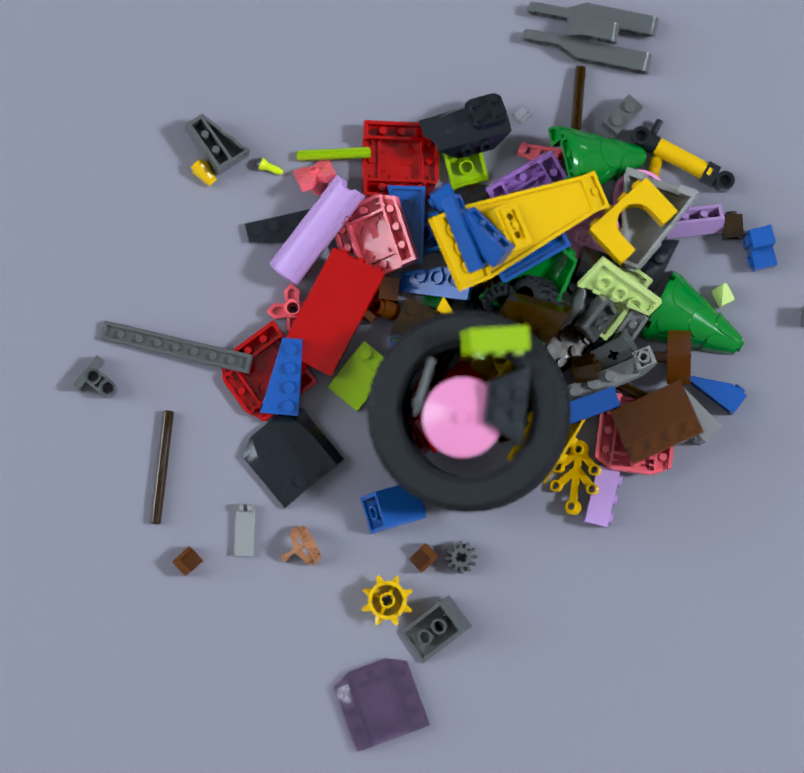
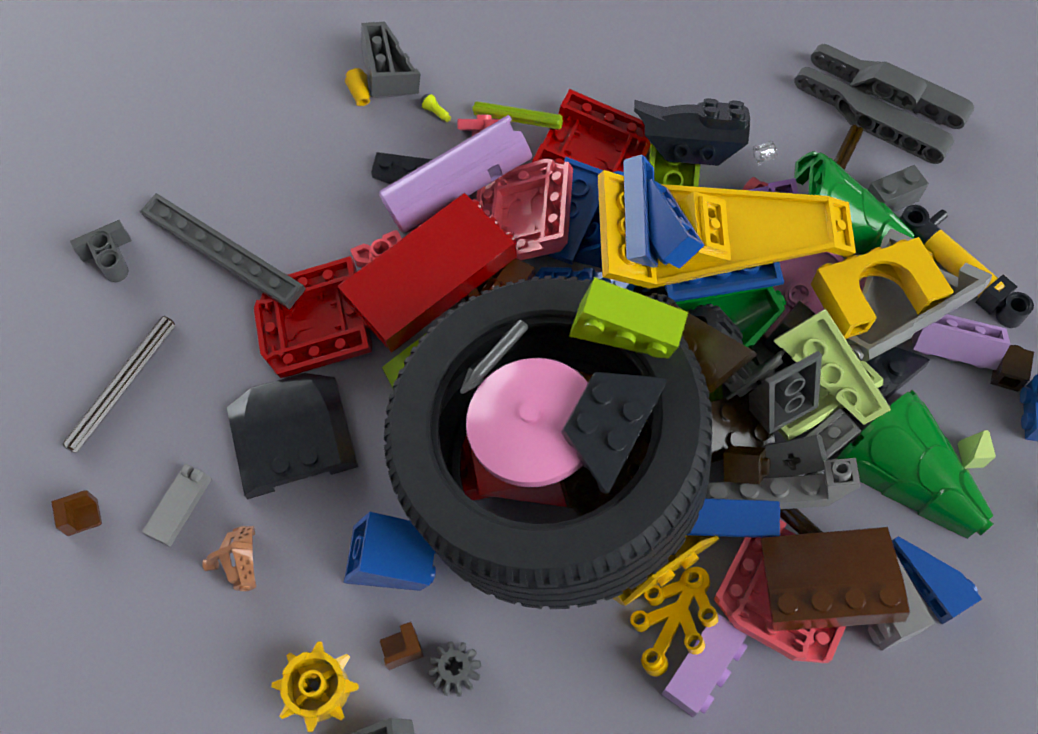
camera: 30 degrees right, 20 degrees down
(285, 382) = (325, 328): blue wing -> none
(677, 356) = (890, 498): reddish brown brick -> none

